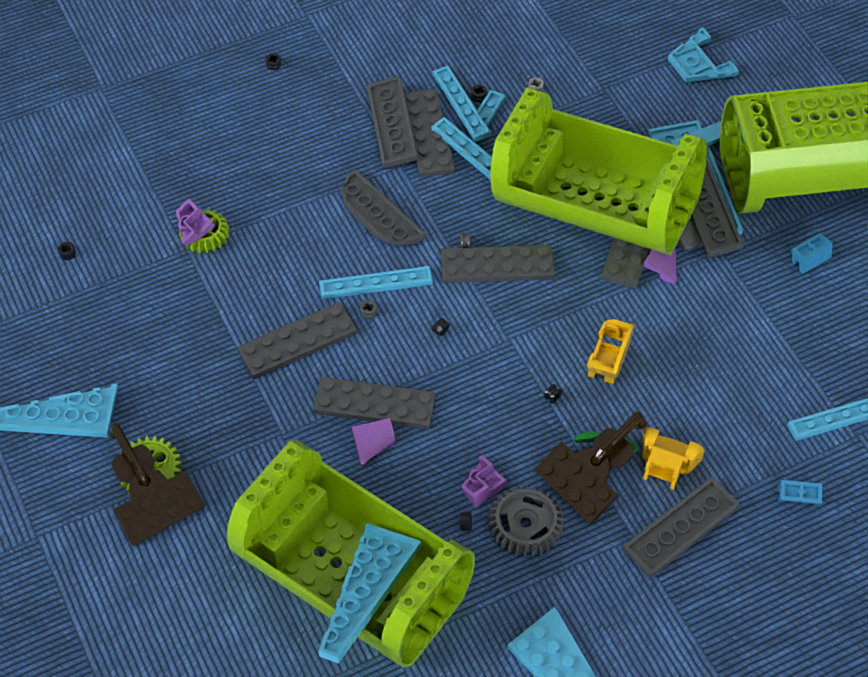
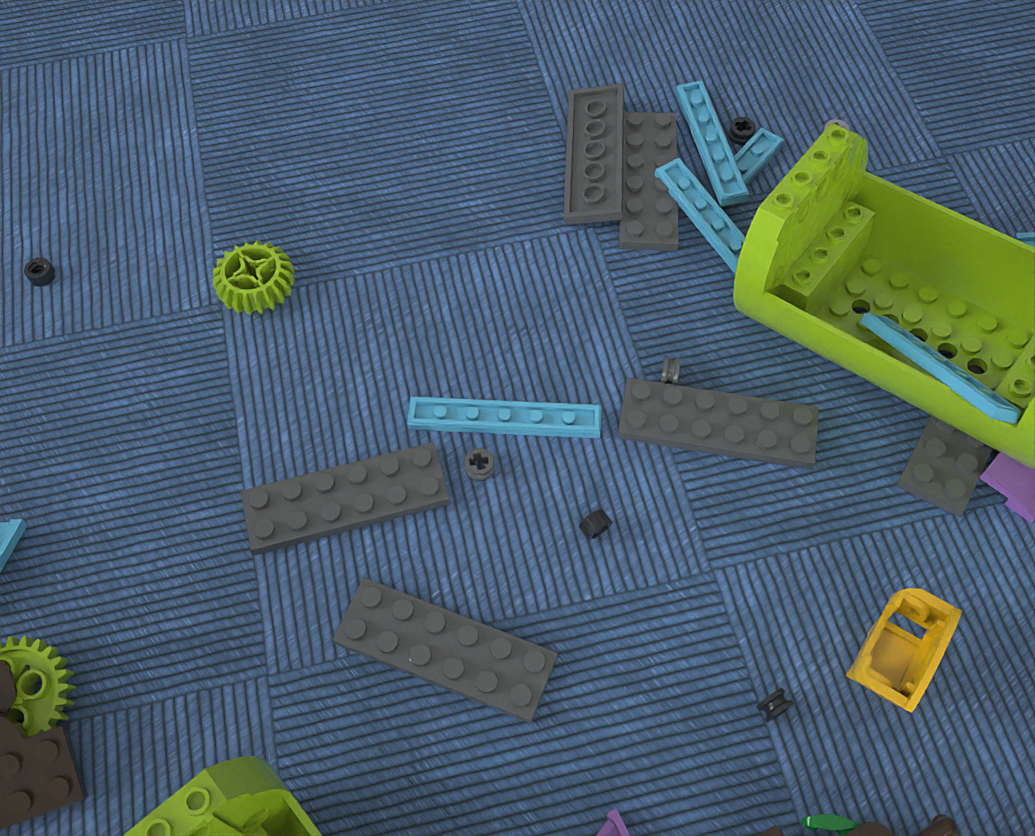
camera: 15 degrees right, 5 degrees up
(192, 222) = (233, 261): medium lavender slope -> none
(277, 61) = (441, 30): black bush -> none
(373, 439) = (420, 727): medium lavender slope -> none
(378, 213) = (538, 297): dark grey plate -> none
(606, 208) = (942, 368): none -> medium azure tile

